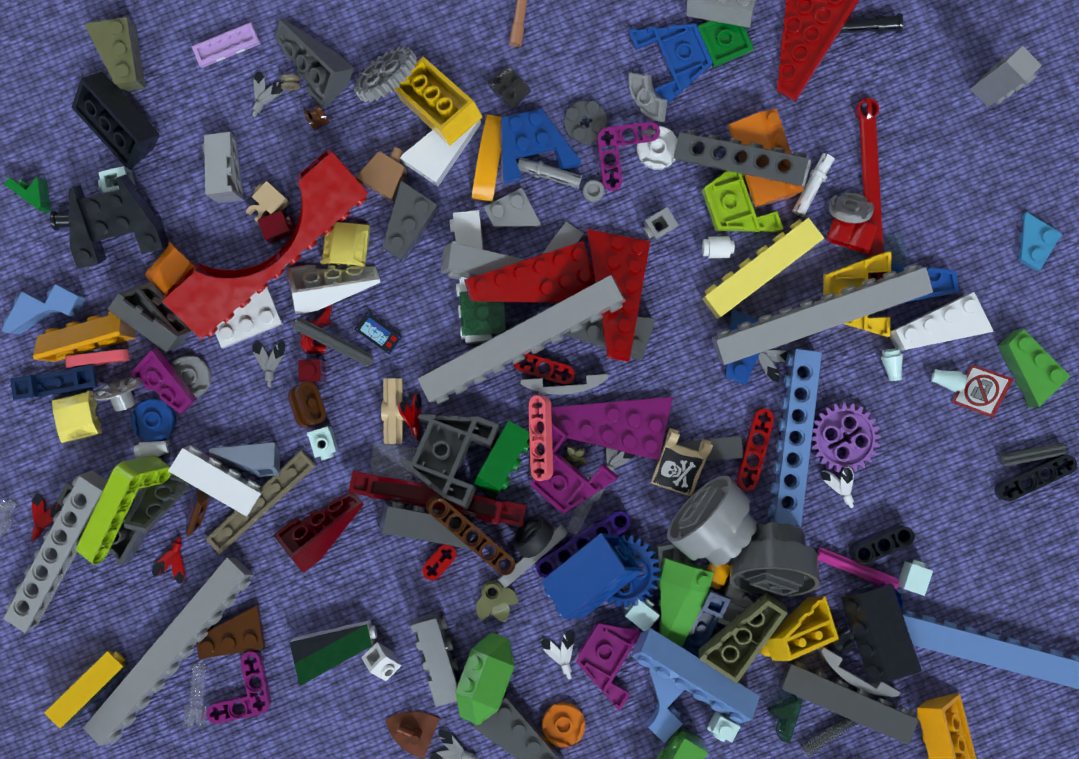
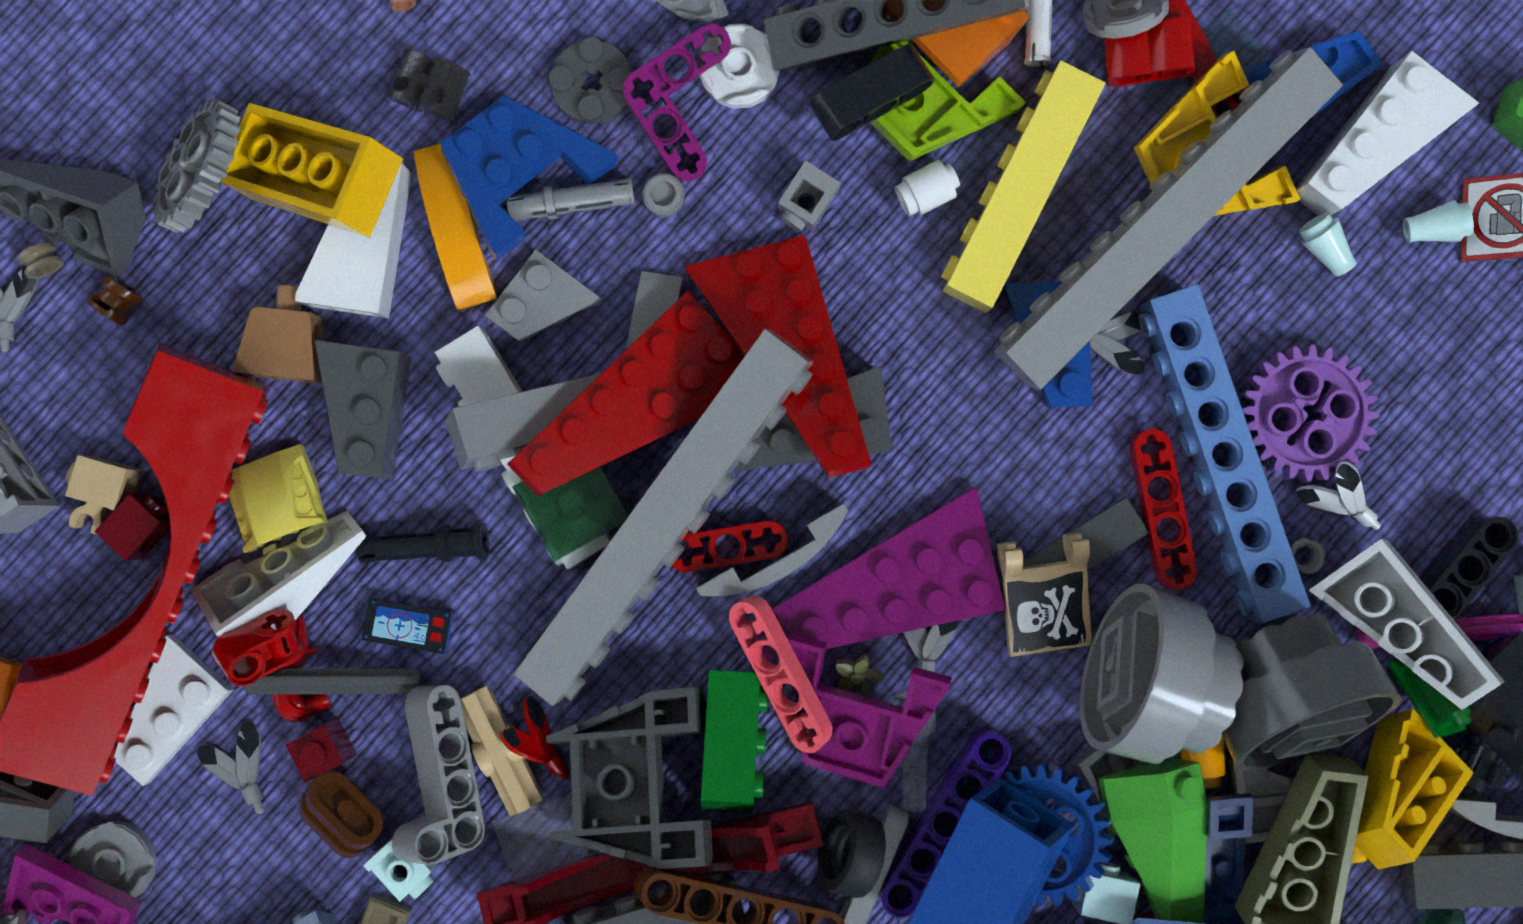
camera: 25 degrees left, 0 degrees up
(308, 309) = (258, 648): none -> red piece
(370, 381) = (424, 709): none -> light grey beam
(413, 303) = (443, 544): none -> black pin
(713, 190) = (871, 92): none -> black beam
(816, 506) = (1317, 554): none -> light grey axle
(837, 601) = (1434, 708): none -> green hinge
(841, 551) = (1405, 619): none -> white wedge

